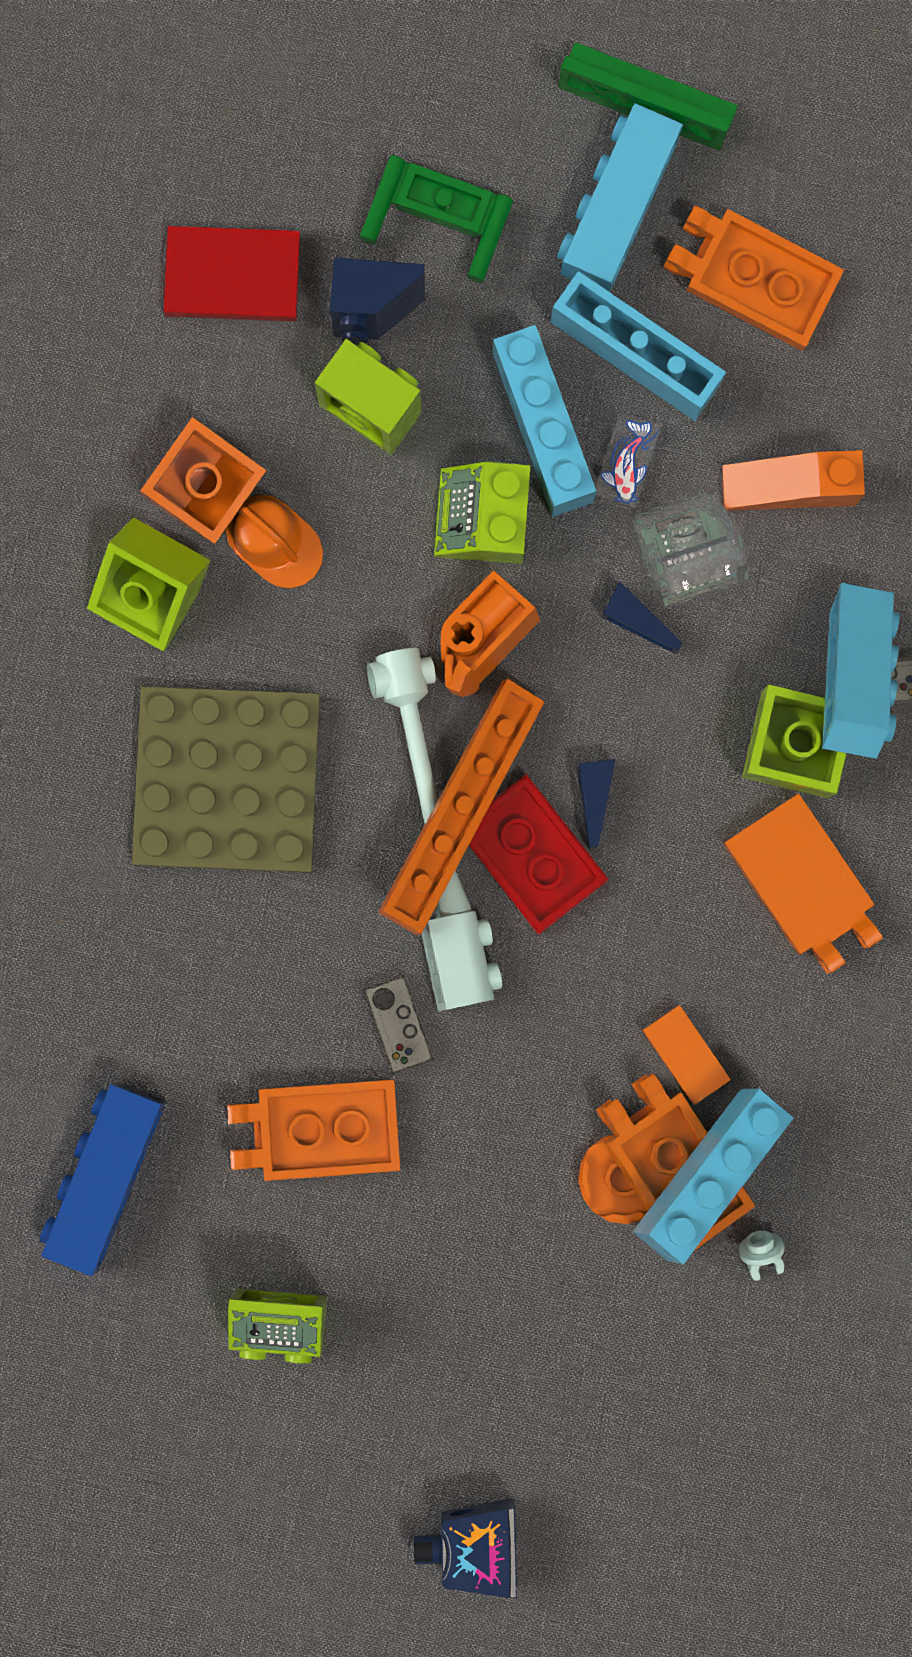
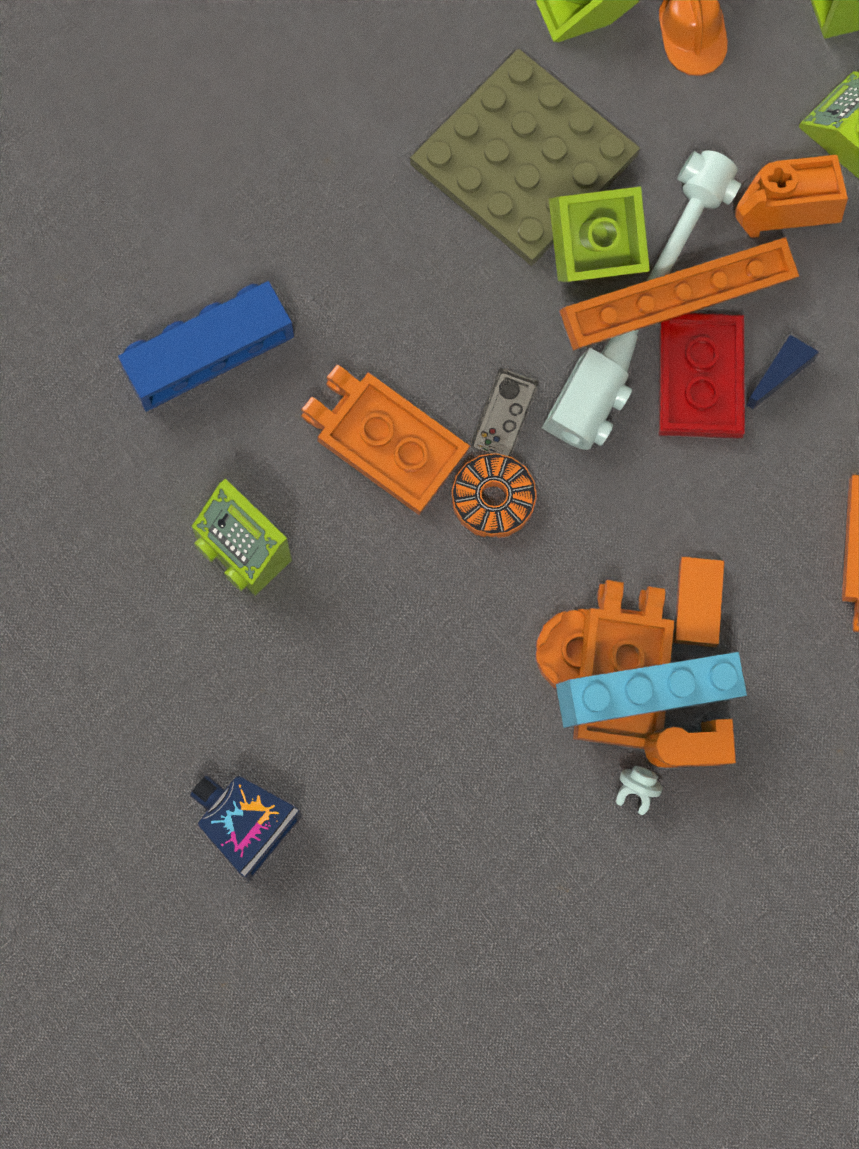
camera: 40 degrees right, 10 degrees down
(353, 810) = (599, 234): none -> lime brick
(442, 1131) = (499, 472): none -> tile
(781, 1187) = (679, 748): none -> orange leg

